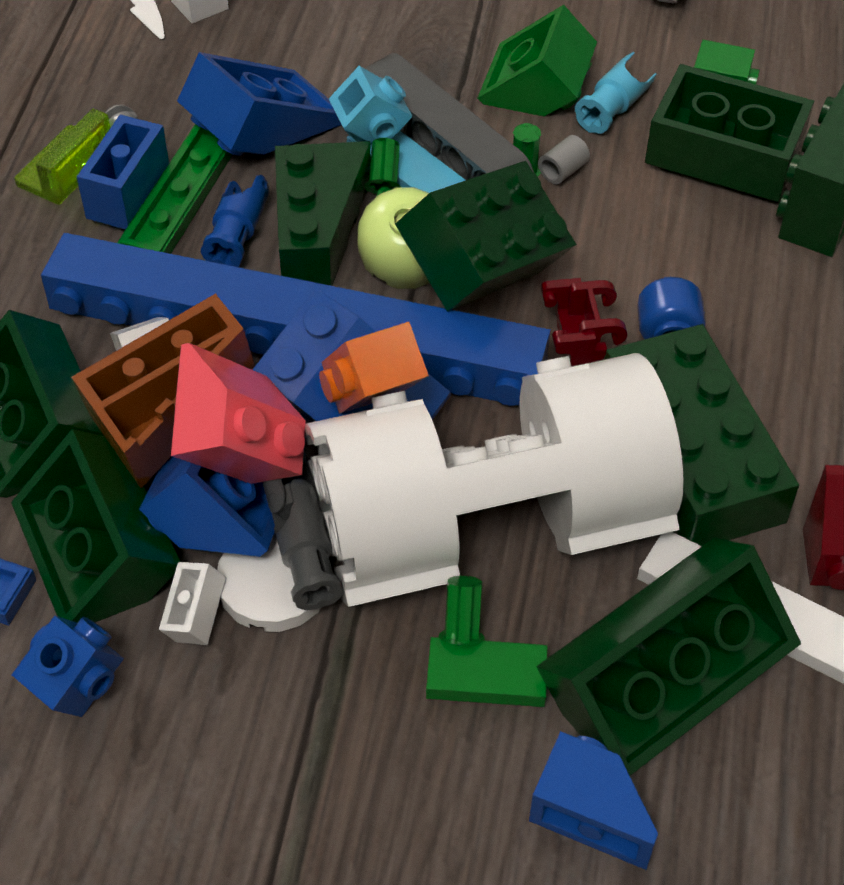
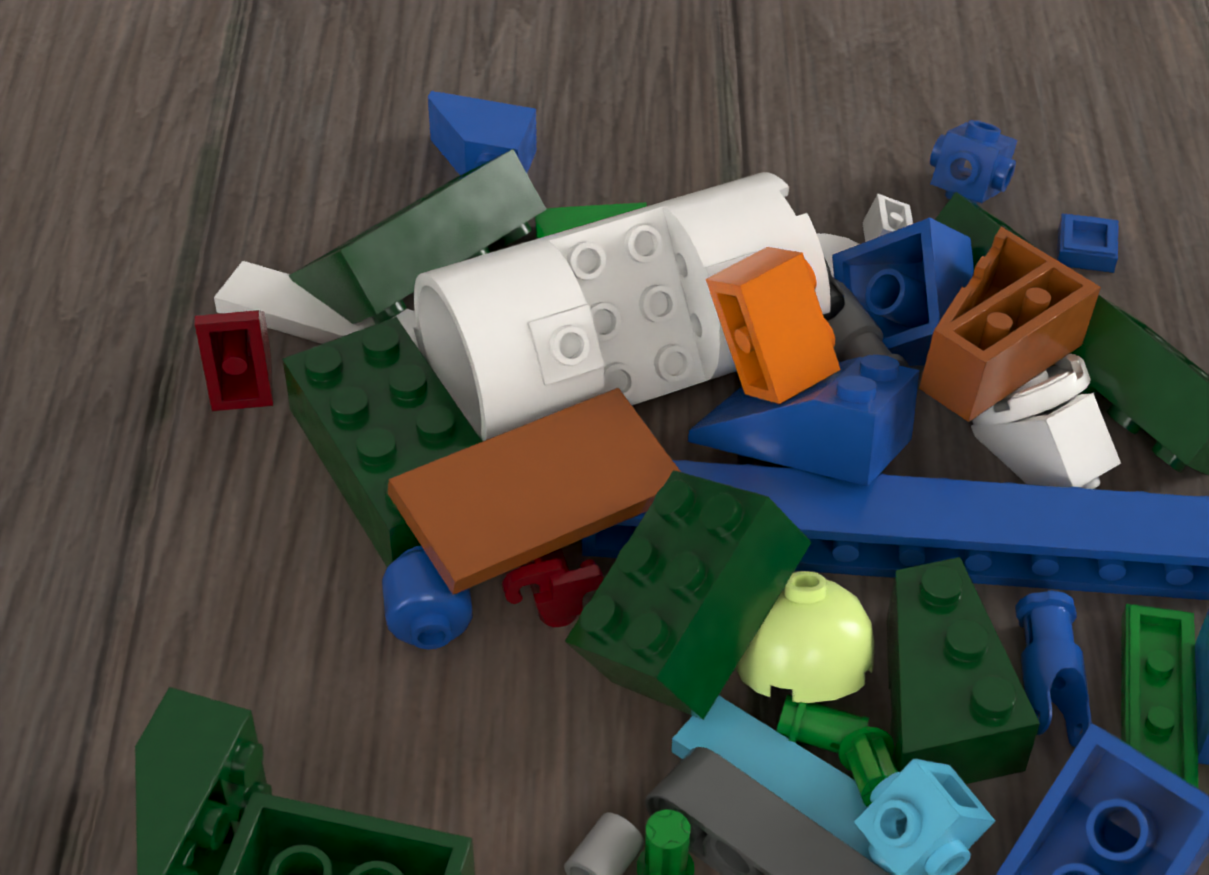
camera: 170 degrees right, 5 degrees down
(234, 420) = (900, 265): coral slope -> none
(587, 319) = (532, 489): none -> dark orange tile

